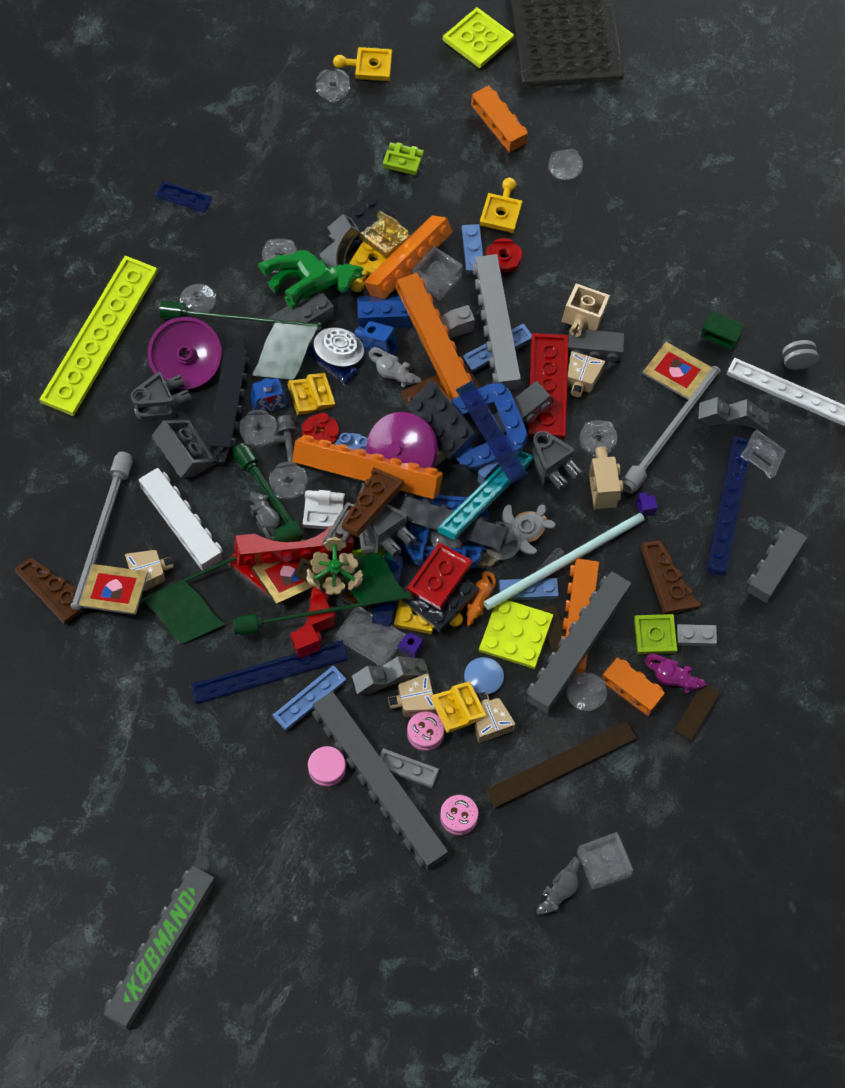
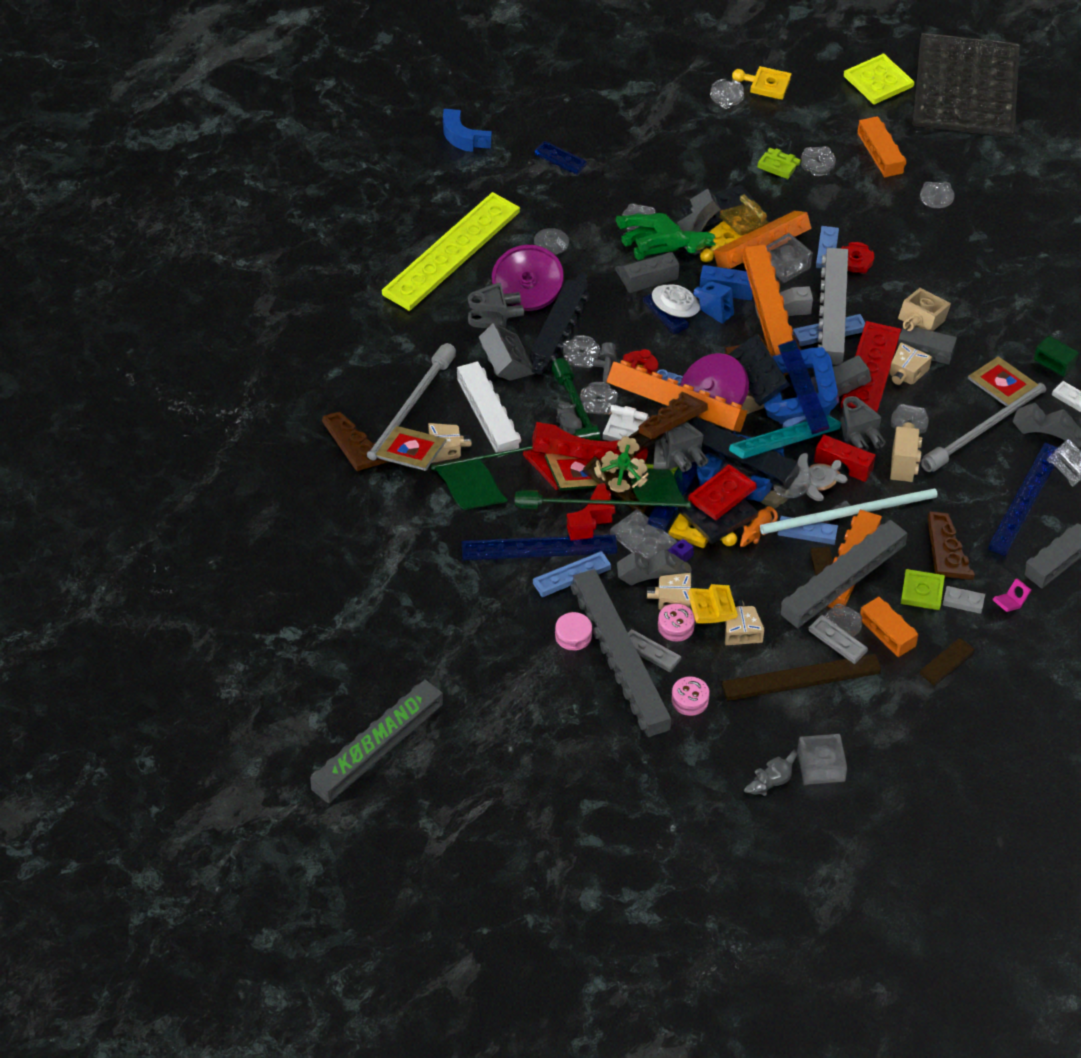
camera: 15 degrees right, 15 degrees down
(76, 193) = (461, 136): none -> blue arch
(268, 395) = (598, 324): blue torso -> none
(283, 348) = (621, 291): flag -> none
(311, 394) = (639, 334): yellow slope -> none
(391, 369) = (720, 325): light grey animal -> none
(440, 138) = (823, 154): none -> clear plate
(484, 675) = (747, 589): medium blue dish -> none
(501, 203) = (857, 214): yellow plate -> none
(516, 633) = (785, 561): neon yellow plate -> none
(559, 499) = (857, 460): none -> red arch
(588, 714) = (838, 639): none -> light grey tile
(646, 504) = (942, 482): dark purple piece -> none
(671, 675) = (929, 623): magenta animal -> none
(740, 627) = (1010, 600): none -> dark pink bracket

